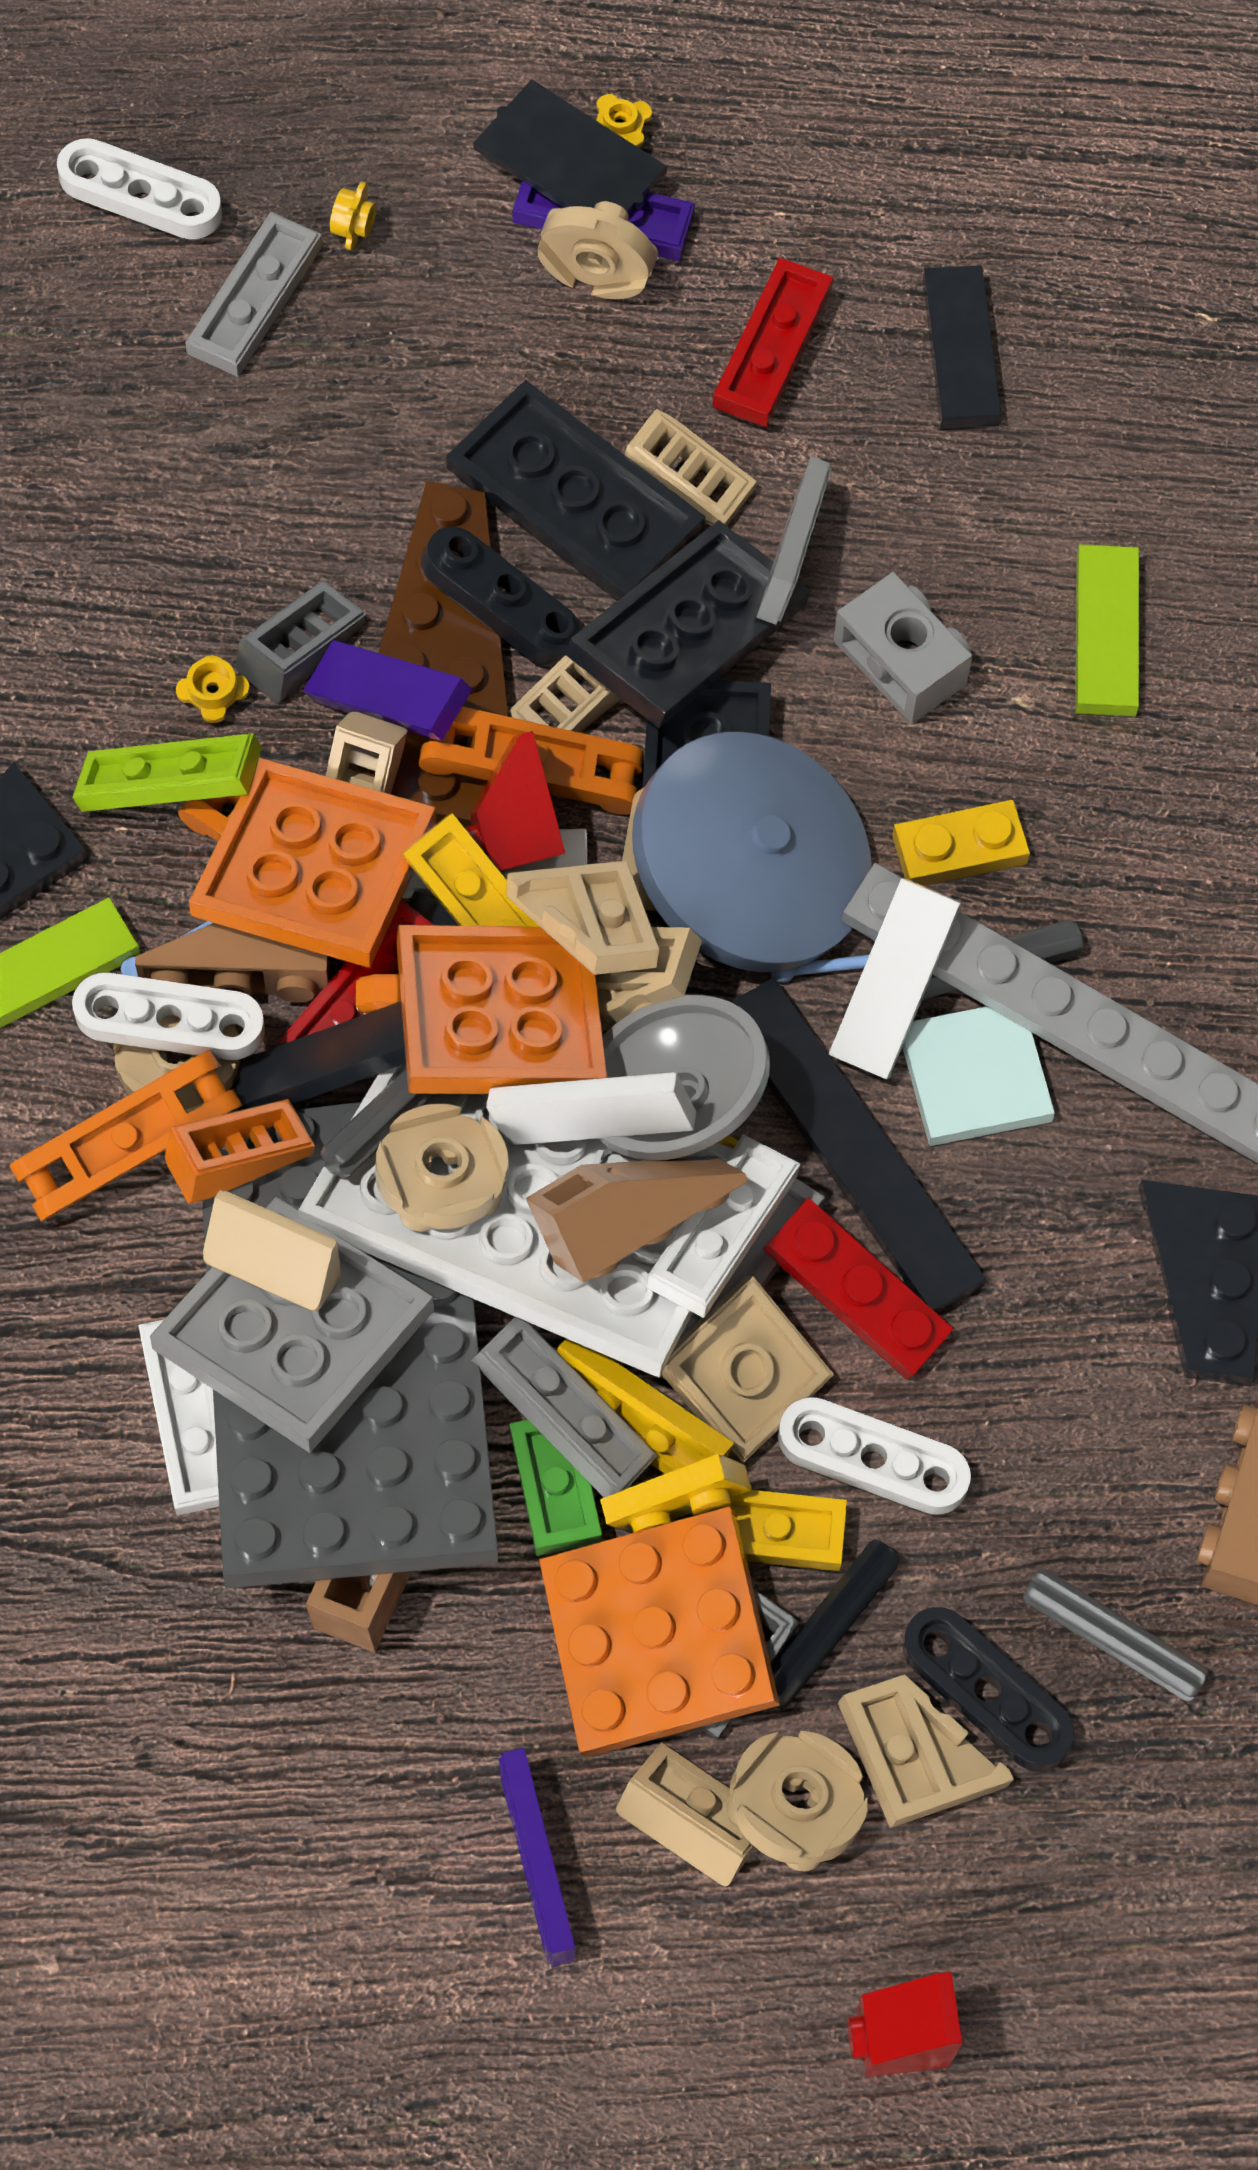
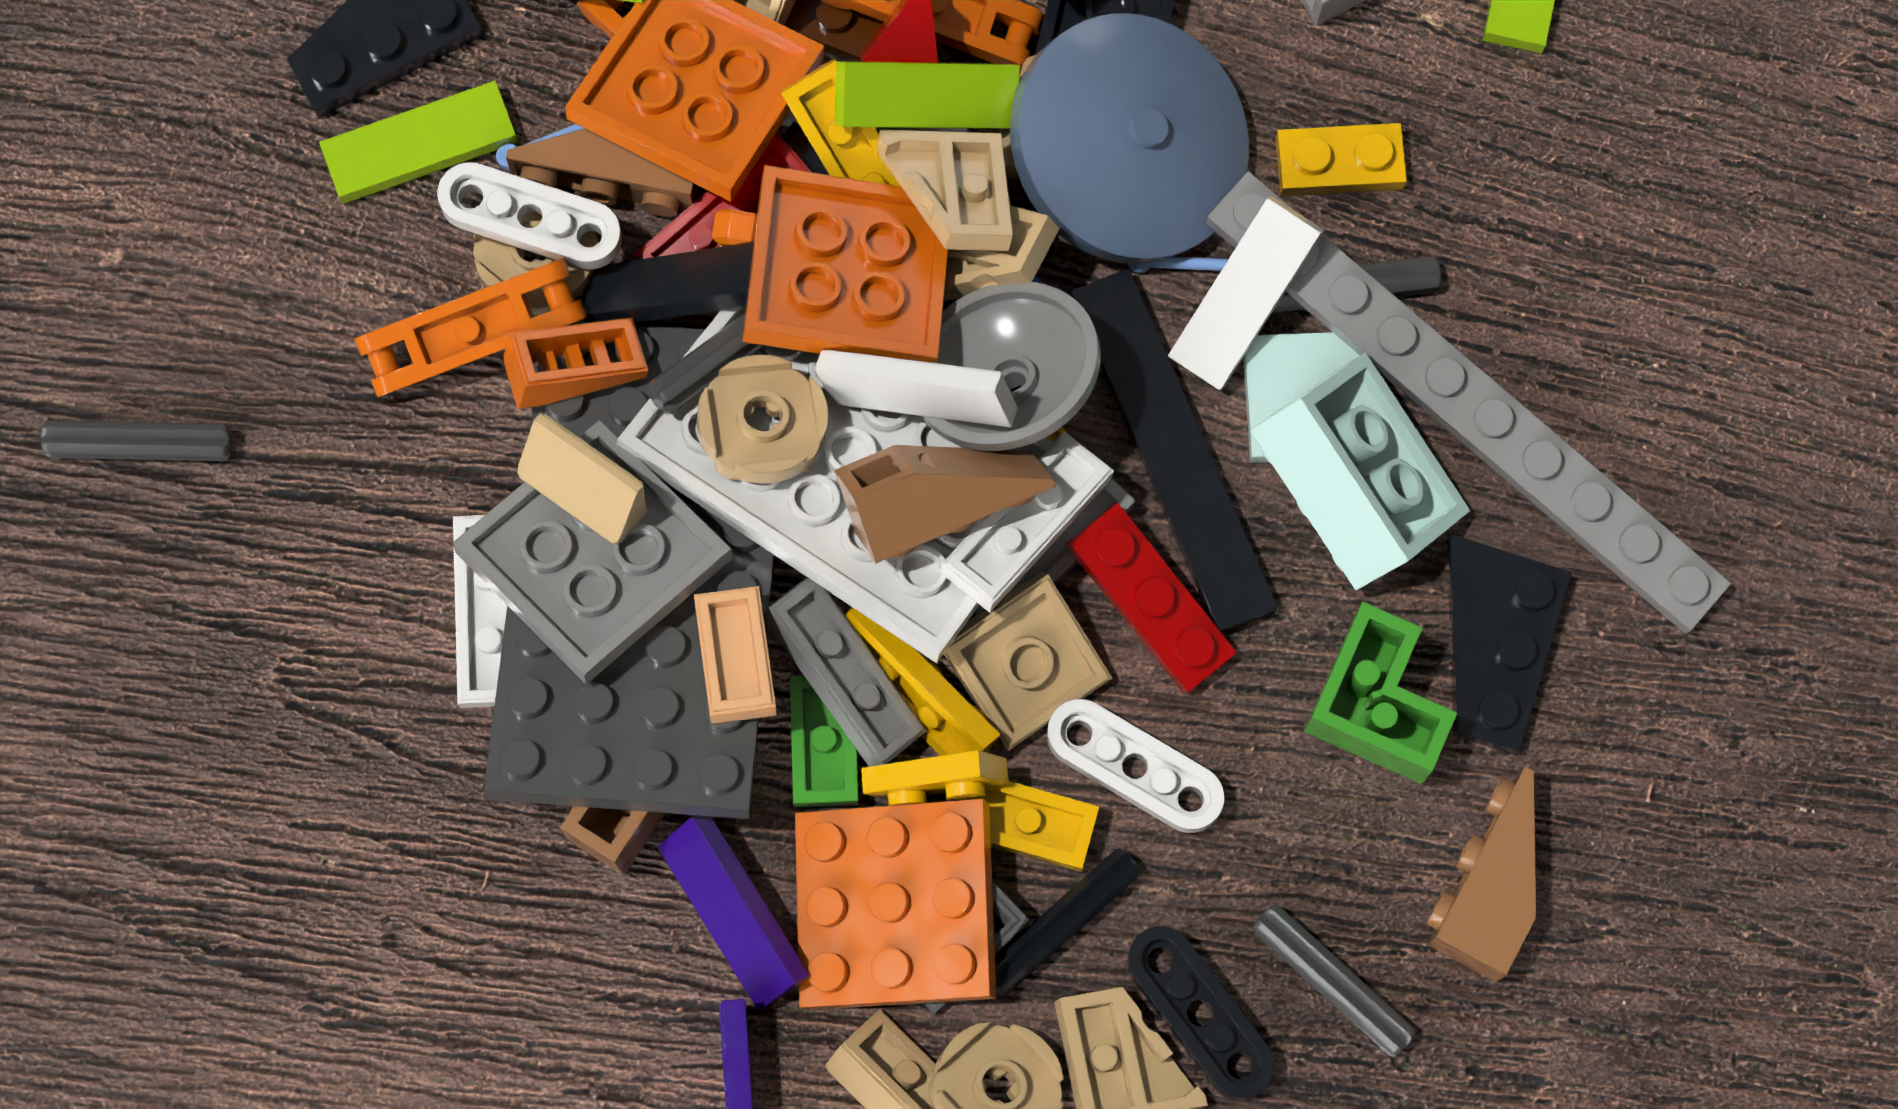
camera: 10 degrees right, 10 degrees up
(455, 1401) = (735, 655): none -> light nougat tile
(494, 1666) = (733, 911): none -> dark purple tile
(545, 834) = (924, 94): none -> lime tile
(1041, 1131) = (1360, 472): none -> light aqua slope
(1096, 1359) = (1367, 710): none -> bright green brick

